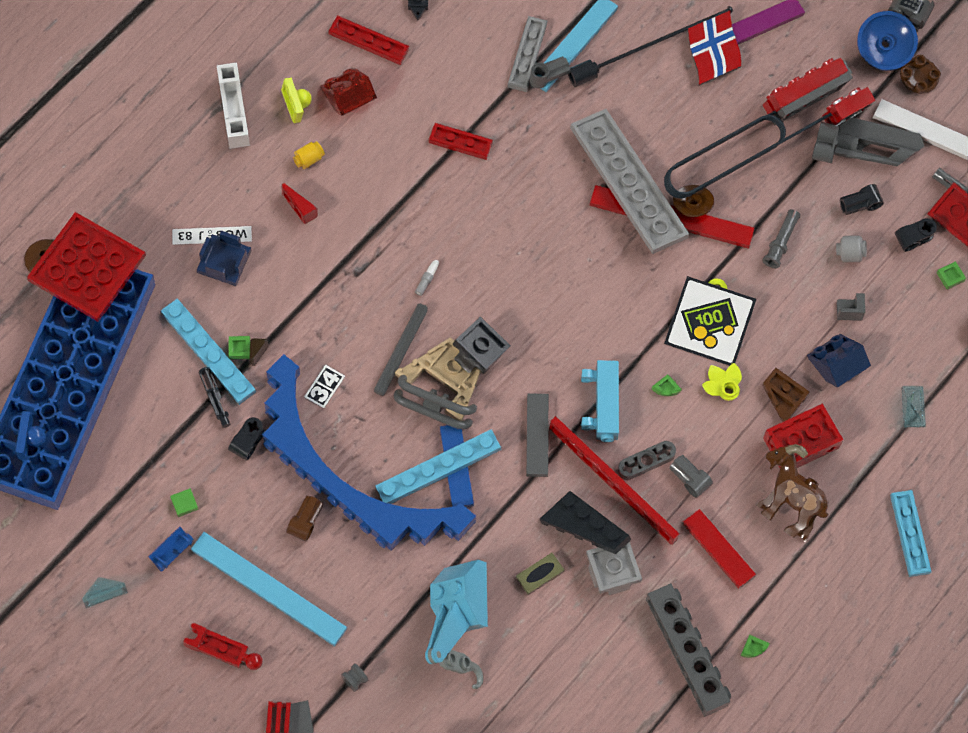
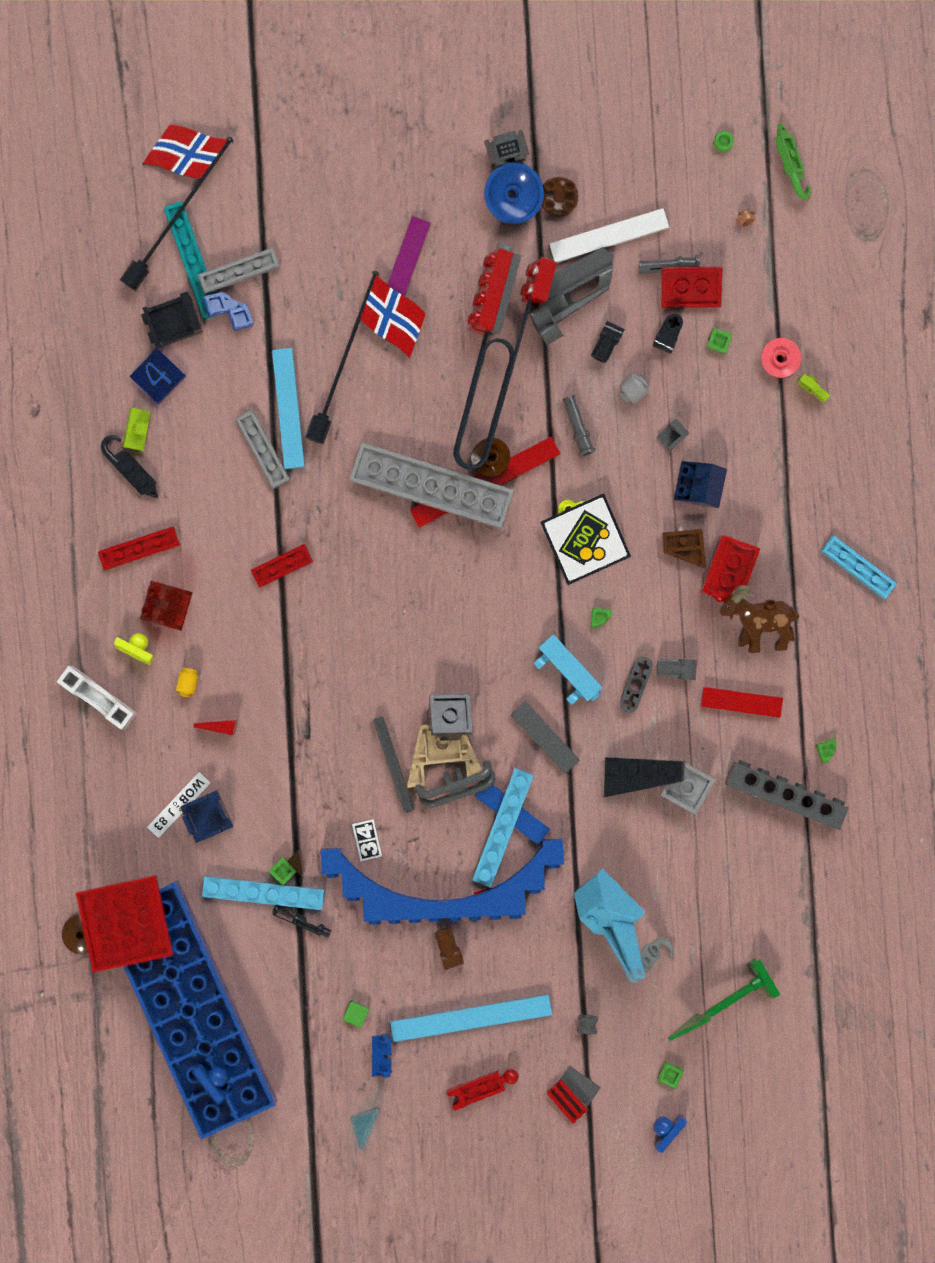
camera: 35 degrees left, 20 degrees up
(244, 441) = (355, 934): black piece -> none
(427, 278) = (359, 693): light grey piece -> none
(540, 573) = (639, 834): olive tile -> none
(549, 71) = (296, 451): dark grey piece -> none
(614, 481) = (641, 723): red tile -> none
(723, 380) = (632, 575): neon yellow plate -> none
(913, 406) = (779, 469): clear light blue slope -> none

